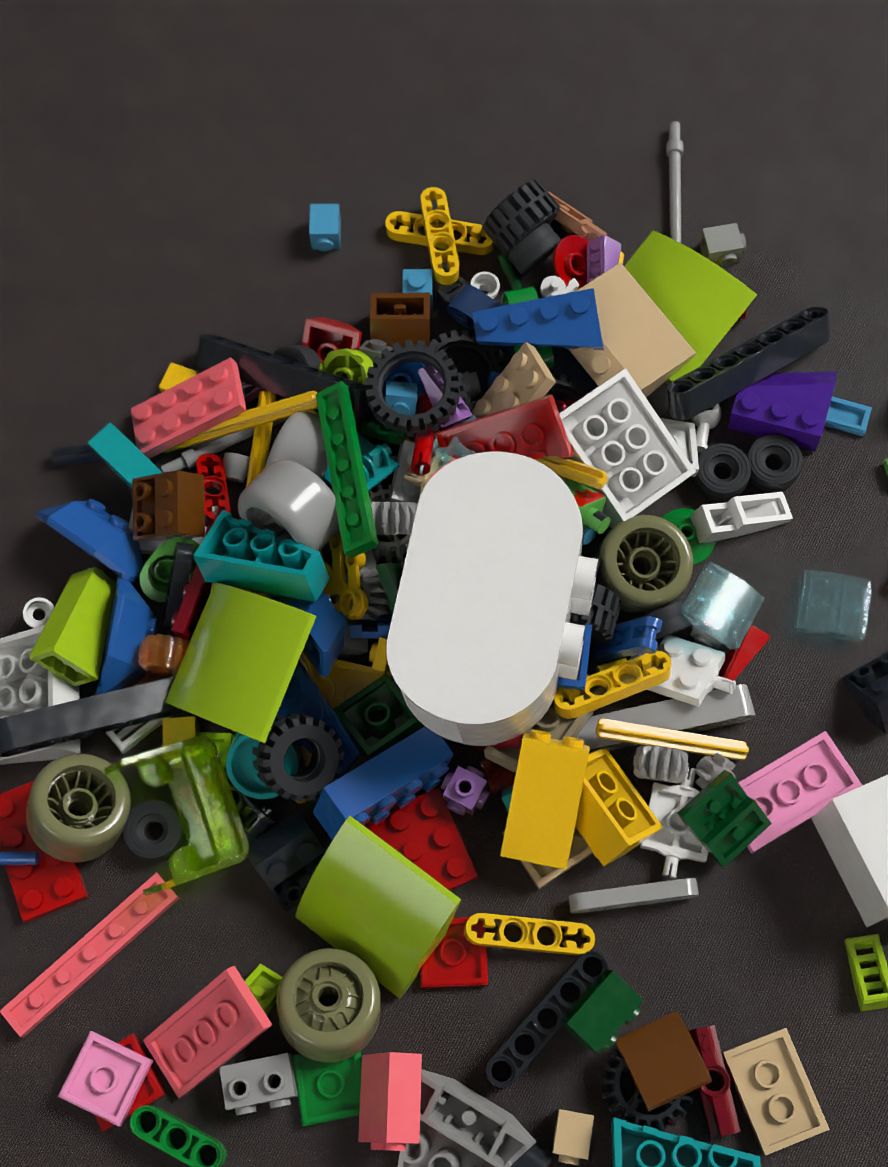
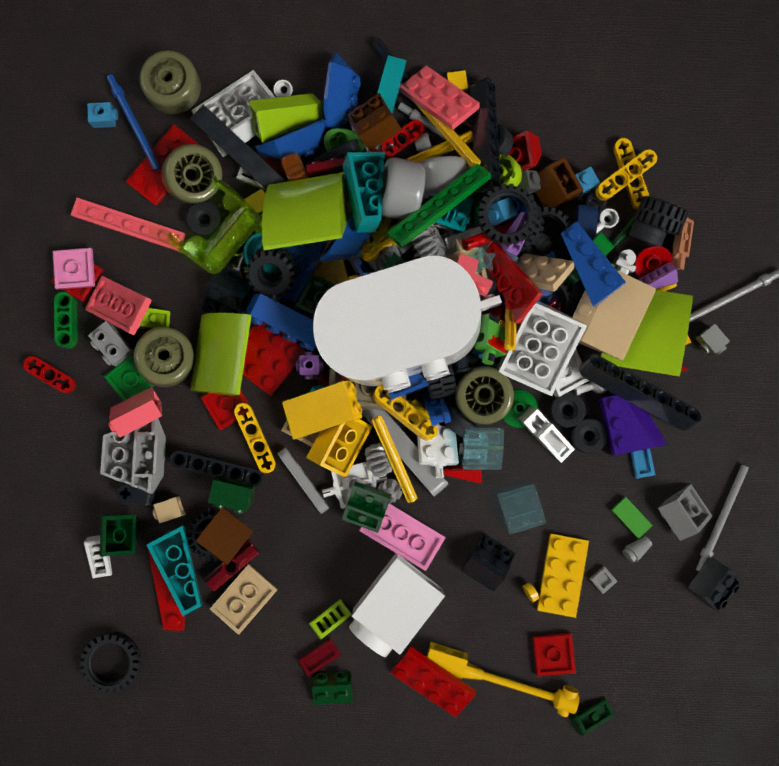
camera: 55 degrees right, 15 degrees up
(325, 226) = (597, 106): dark azure brick -> none

